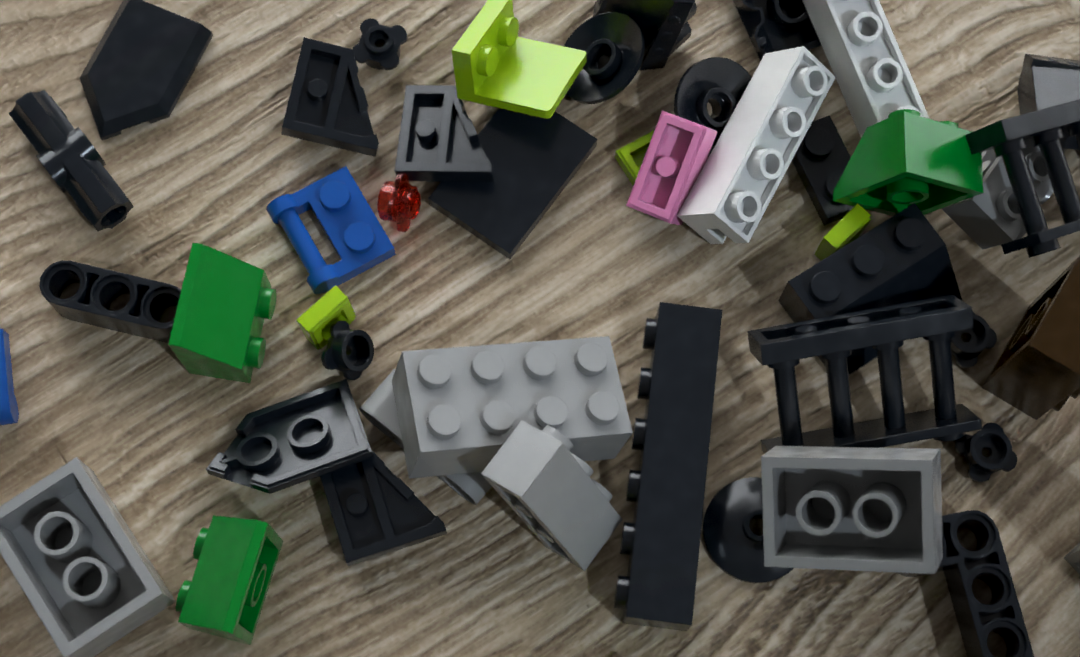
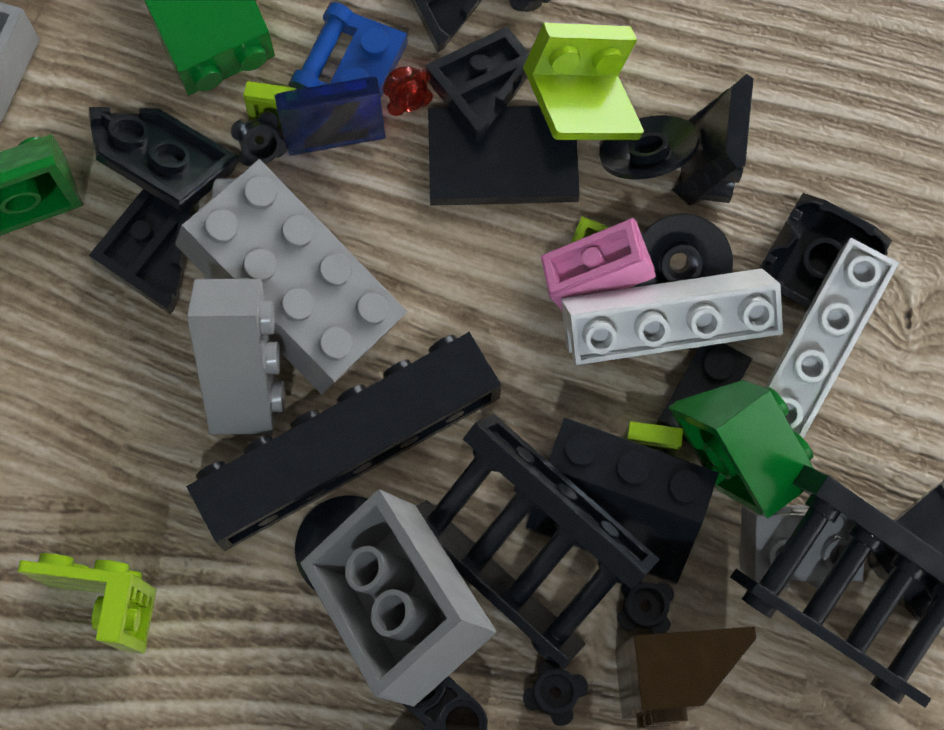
camera: 55 degrees right, 0 degrees up
(385, 273) = (331, 115): none -> clear blue tile

